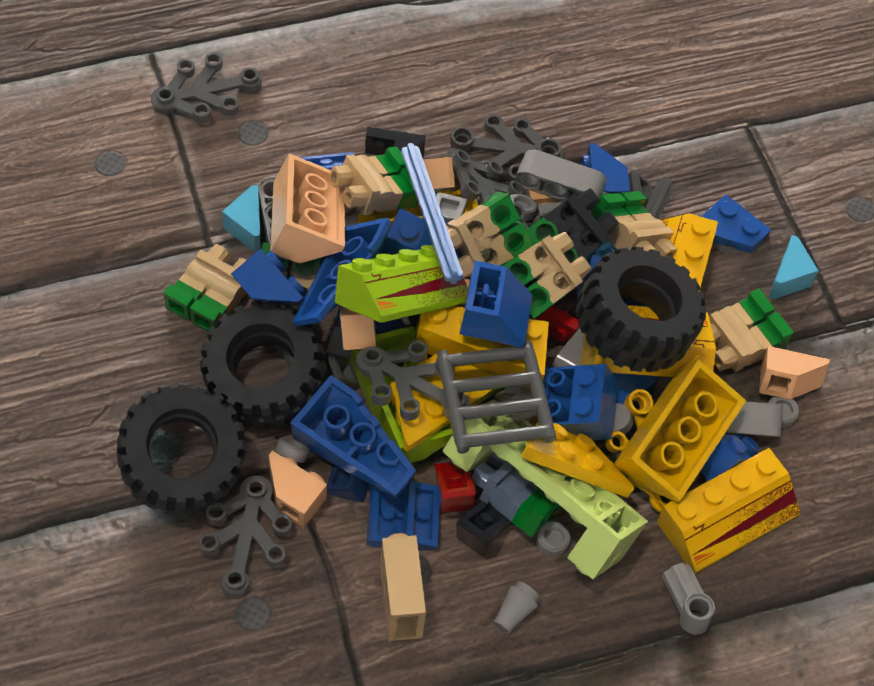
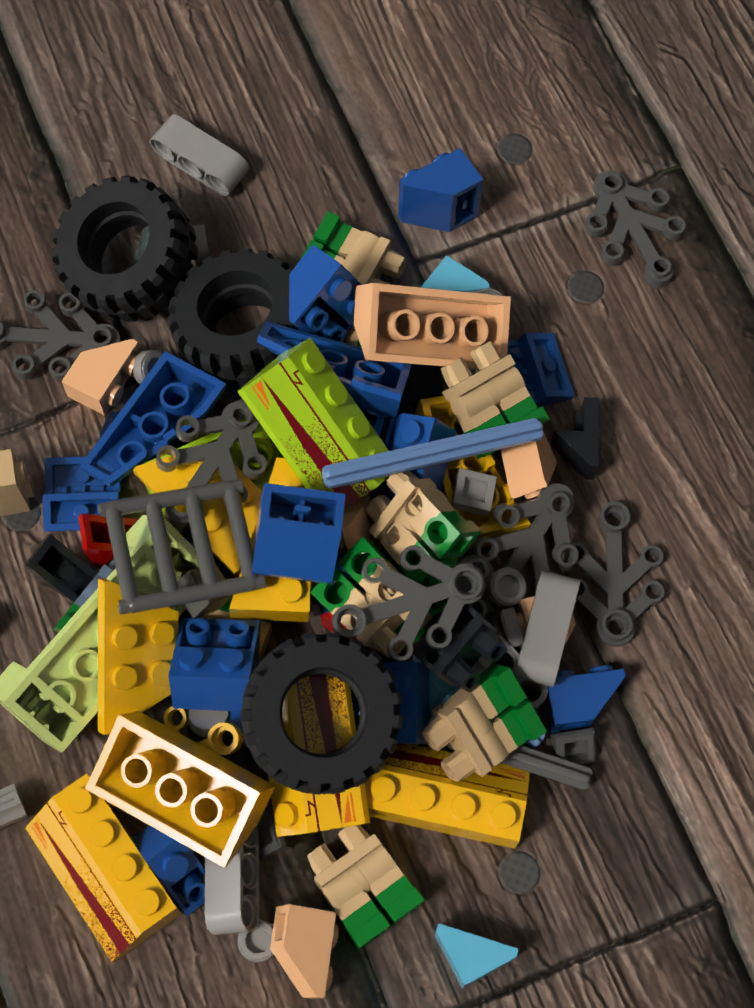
camera: 90 degrees right, 10 degrees up
(74, 397) = (199, 155): none -> light grey beam
(159, 205) = (441, 193): none -> blue slope
(547, 202) = (415, 599): none -> dark grey plant
(736, 225) = (540, 873): blue wing -> none

